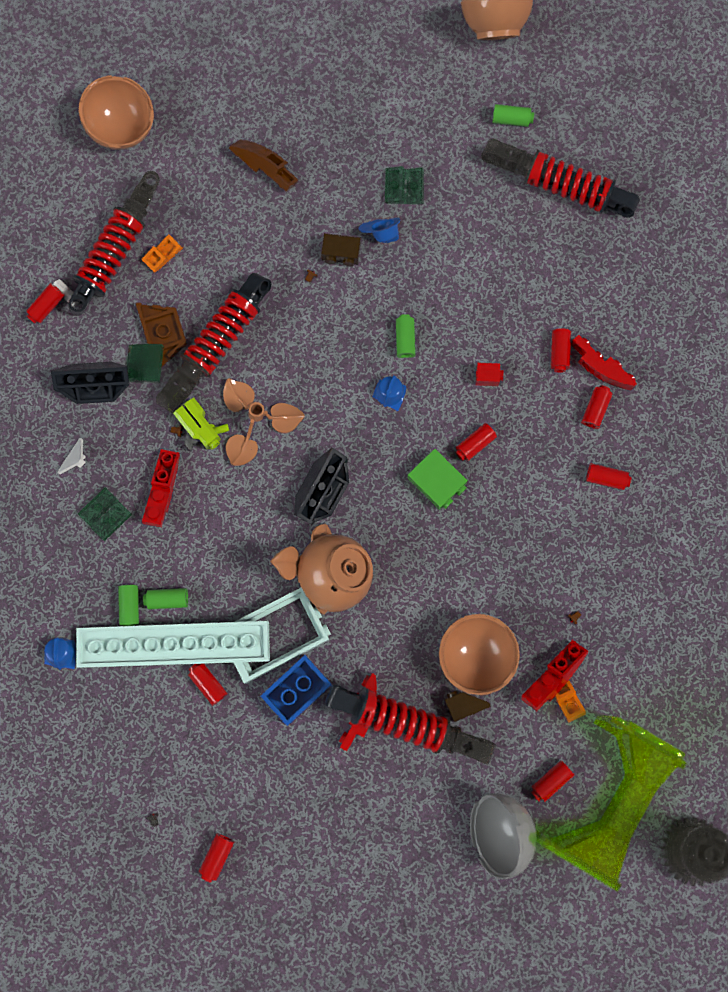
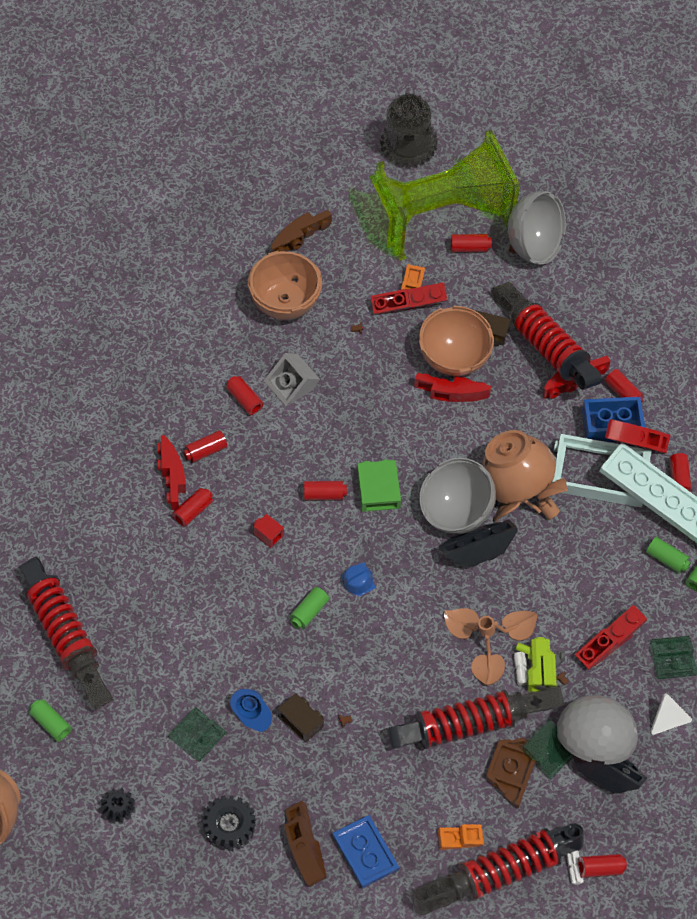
camera: 150 degrees left, 20 degrees down
(114, 395) = (598, 729): none -> light grey piece
(211, 412) = (520, 666): none -> white piece
(219, 192) = (365, 851): none -> blue plate
(259, 678) = (637, 436): none -> red slope
(311, 733) = (622, 385): none -> red brick
(334, 131) = (226, 811): none -> black bush
(362, 505) = (458, 496): none -> light grey piece
(408, 99) = (117, 812): none -> black gear
(445, 617) = (458, 391): none -> red slope
(584, 522) = (291, 378): none -> light grey slope
(678, 590) = (272, 280): none -> nougat piece
(704, 661) = (293, 234): none -> reddish brown slope

